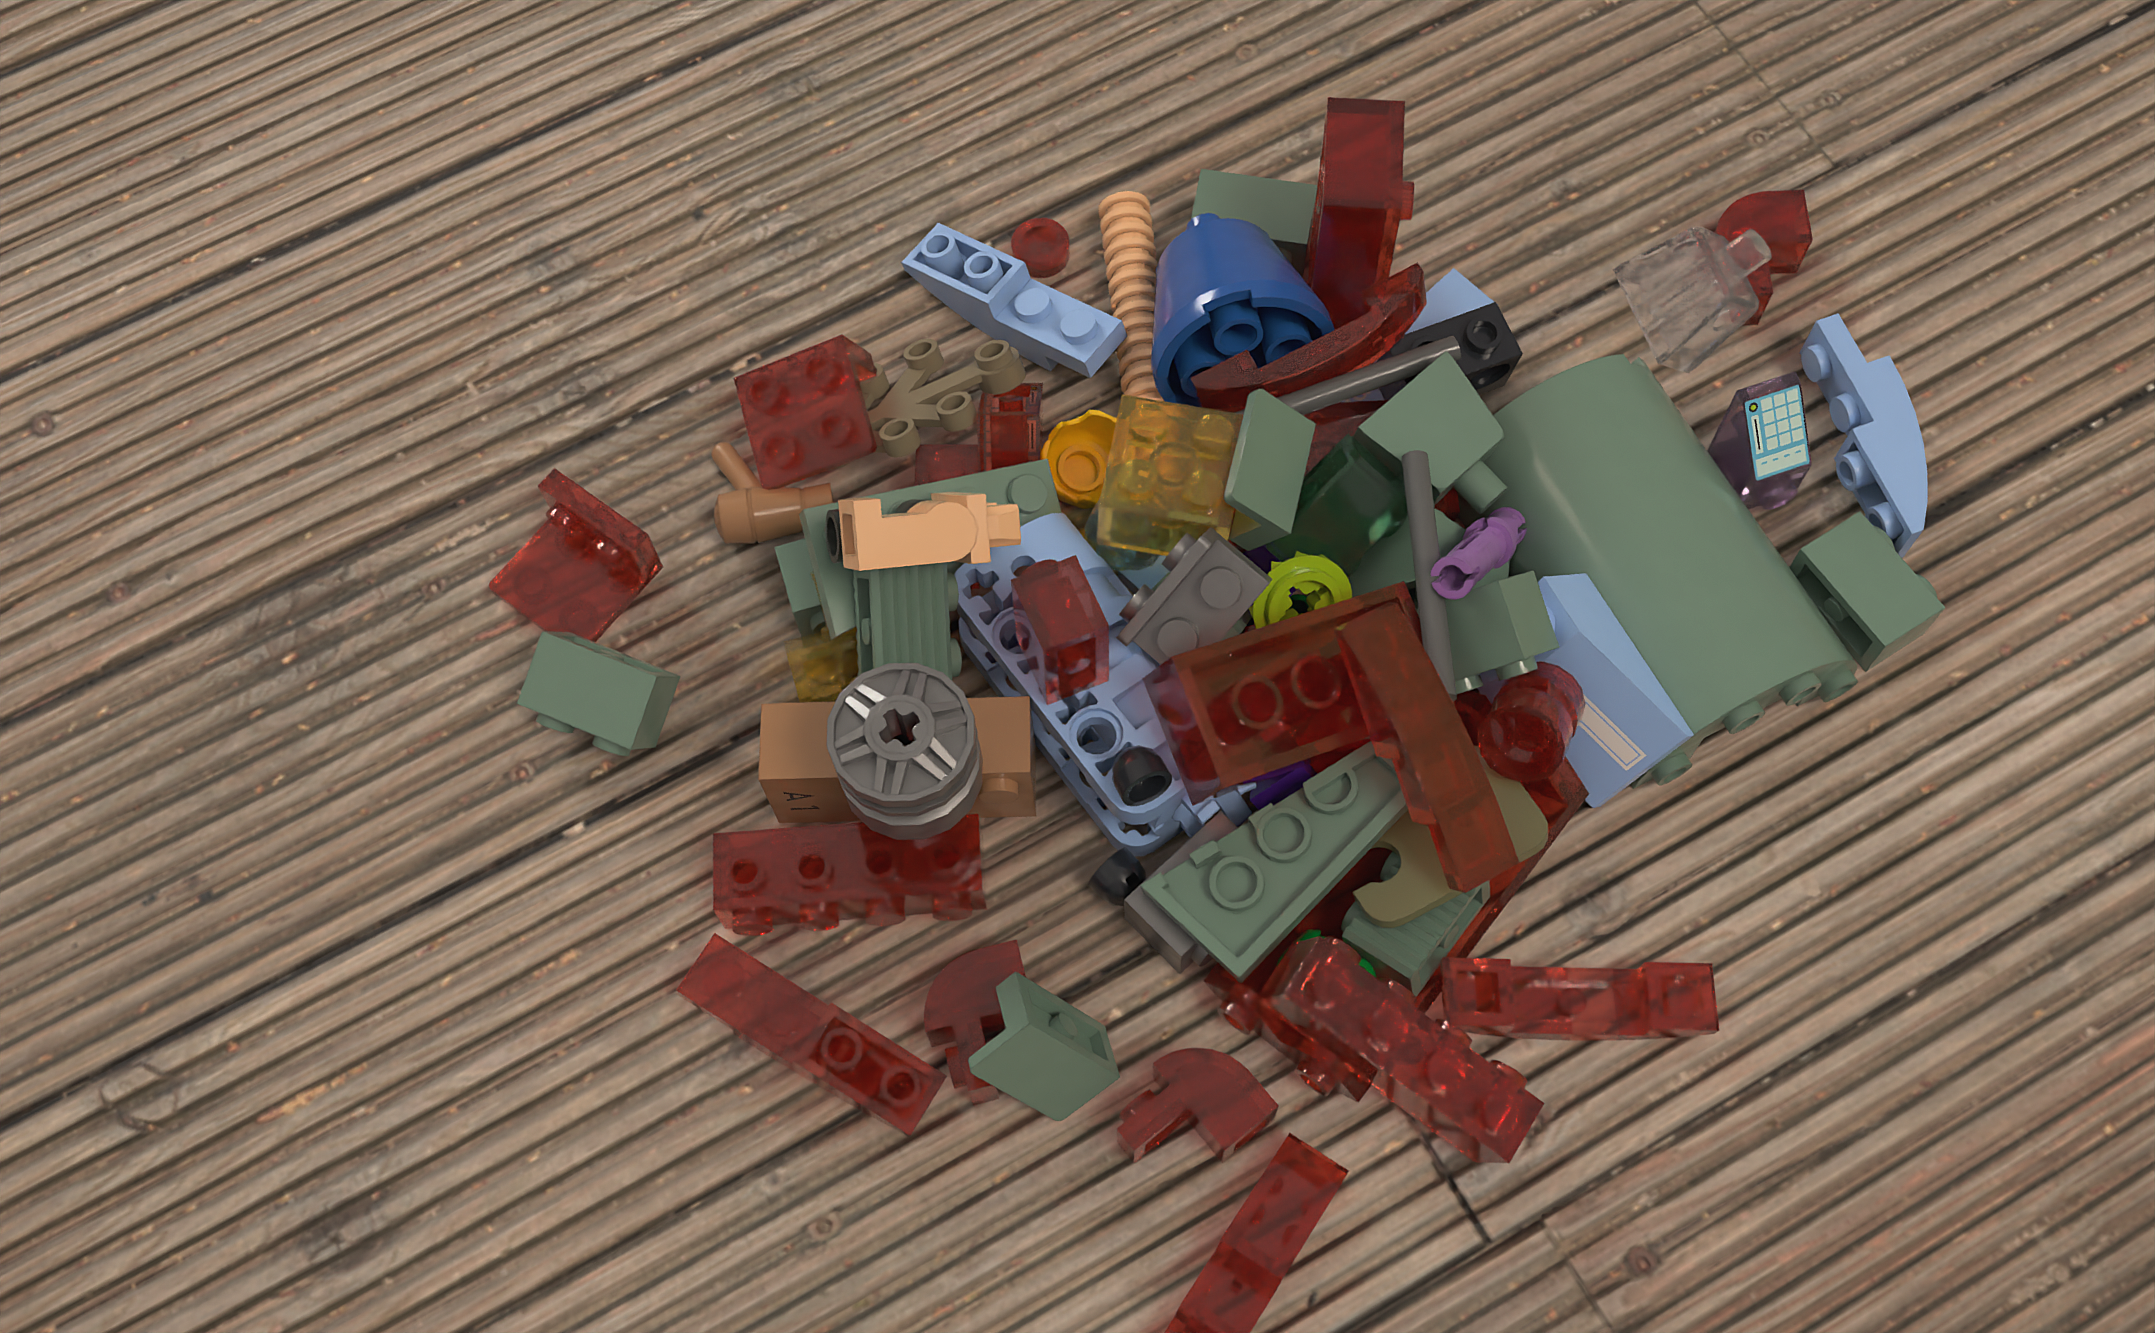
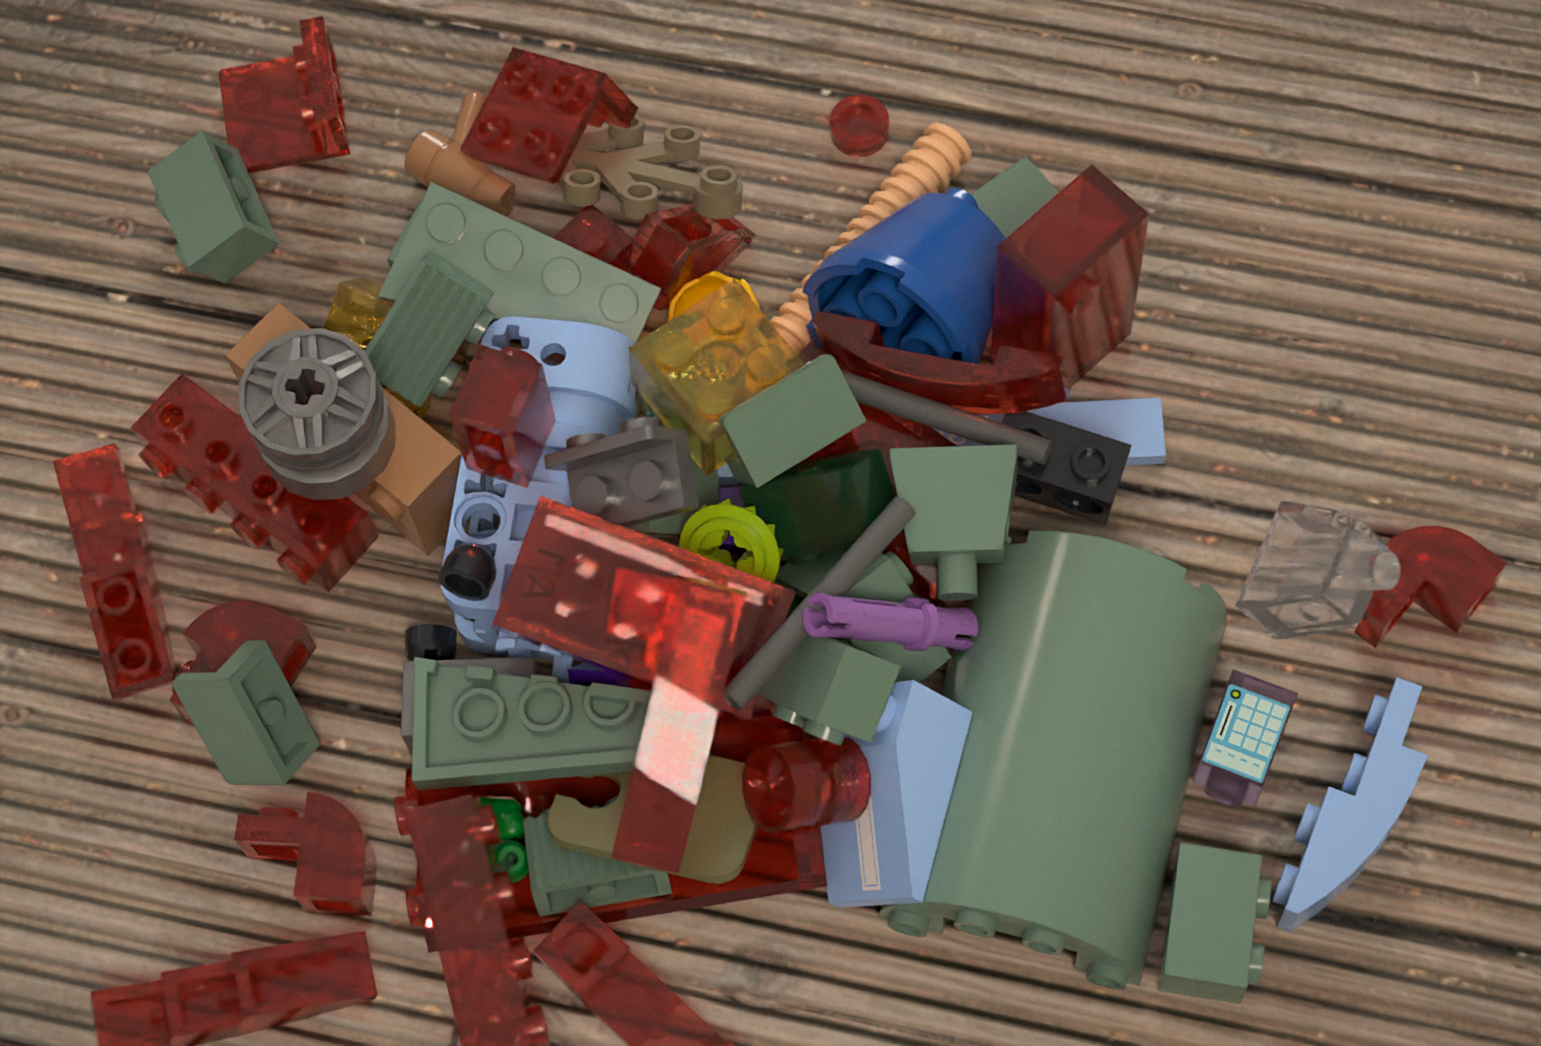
camera: 45 degrees right, 0 degrees up
(920, 531) = (479, 267): light nougat hips -> none
(1008, 305) = (785, 150): light blue slope -> none

